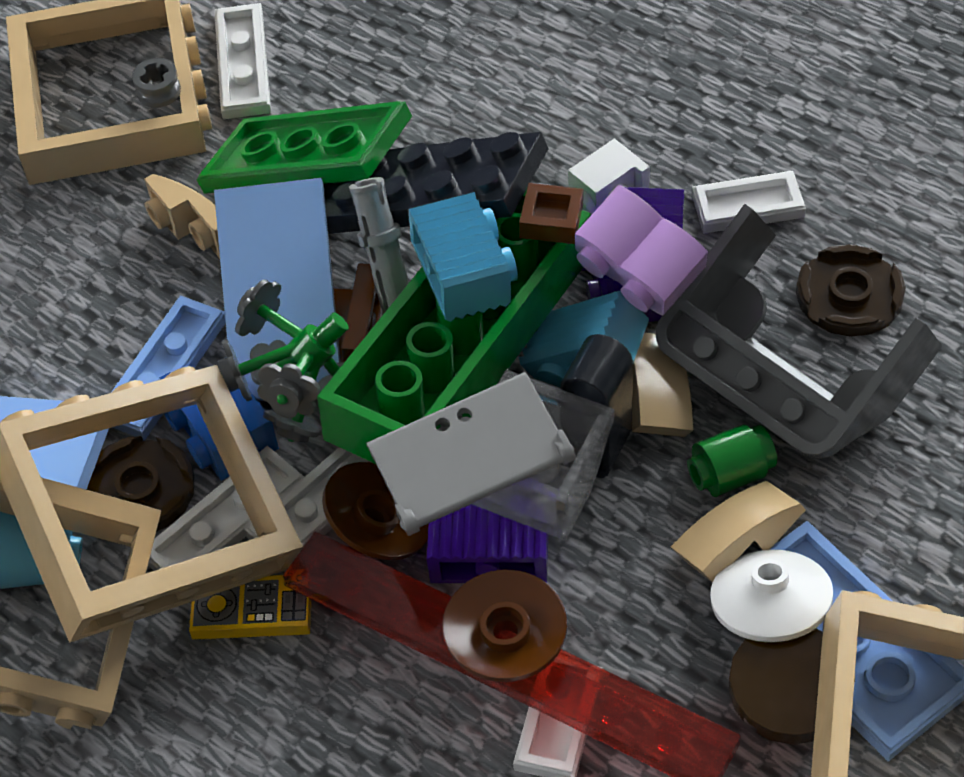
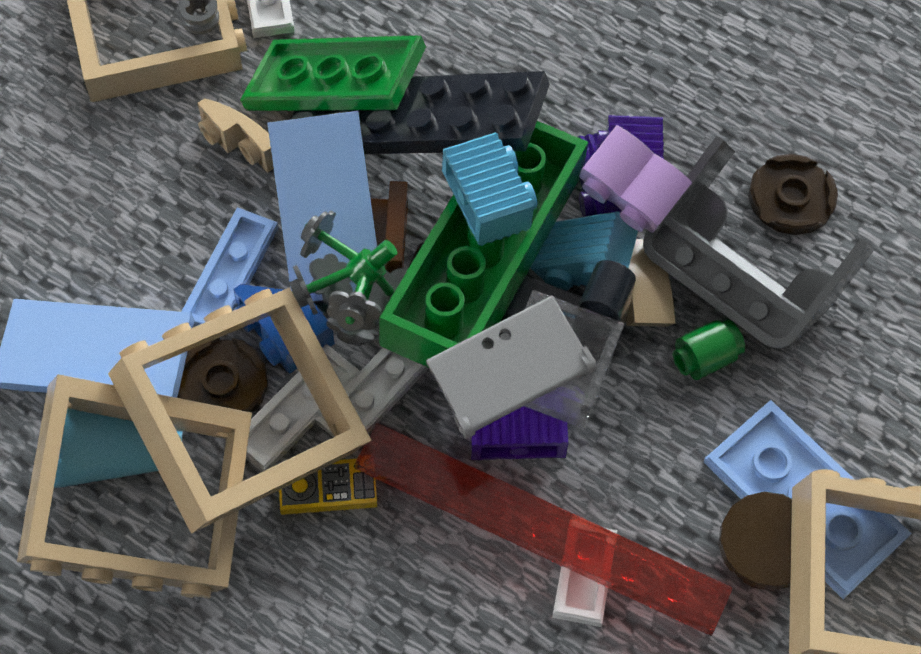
camera: 10 degrees left, 10 degrees up
(366, 515) = (411, 387): reddish brown dish -> none
(380, 239) = (412, 165): light grey pin -> none
(501, 603) = (548, 484): reddish brown dish -> none
(551, 213) = (559, 146): reddish brown plate -> none
(606, 170) = (589, 100): white brick -> none
(723, 534) = (712, 410): tan slope -> none
(771, 196) = (705, 114): white tile -> none
(771, 596) = (749, 482): white dish -> none

